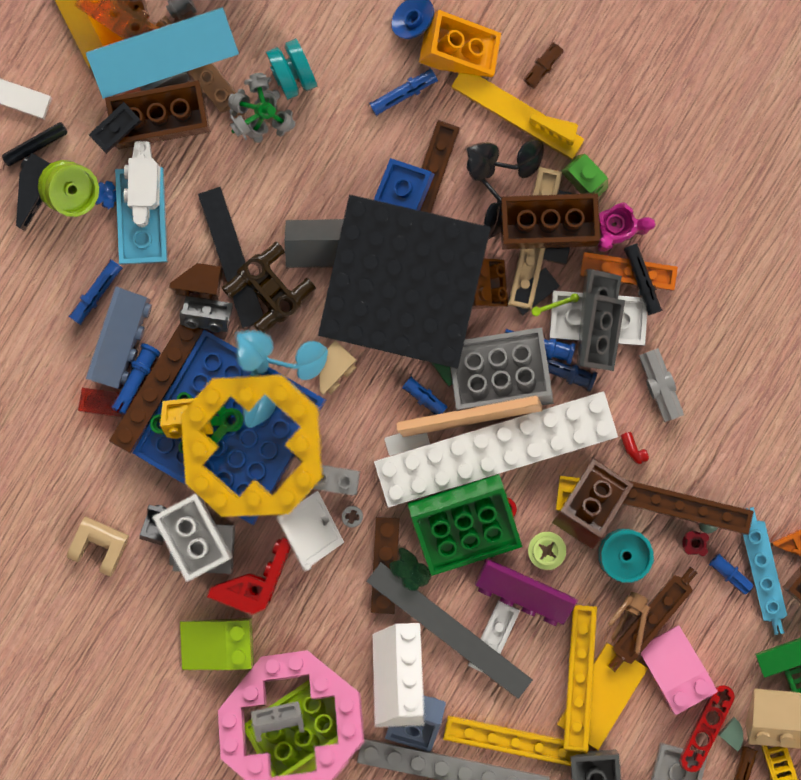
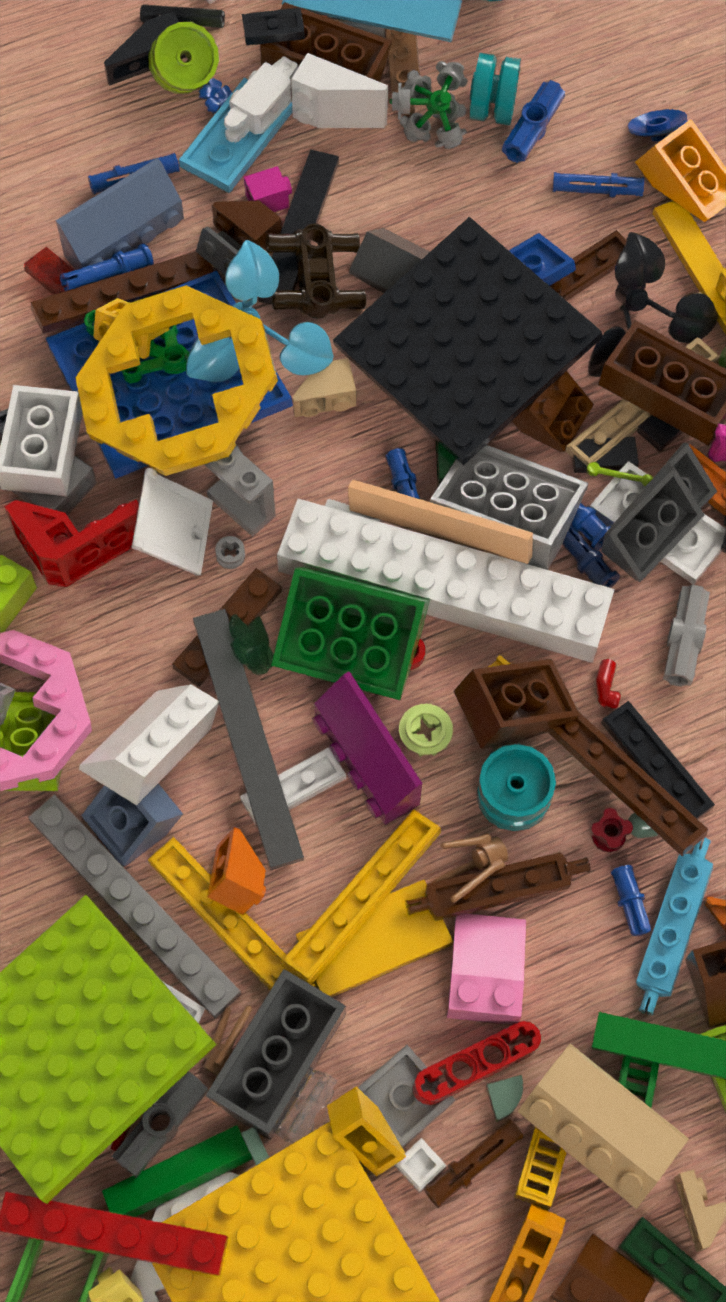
camera: 30 degrees right, 20 degrees down
(185, 149) = (336, 96): none -> white slope
(194, 246) = (269, 188): none -> dark pink brick
(329, 57) = (533, 121): none -> blue piece
(501, 715) = (236, 874): none -> orange slope
(693, 478) = (655, 758): none -> black tile

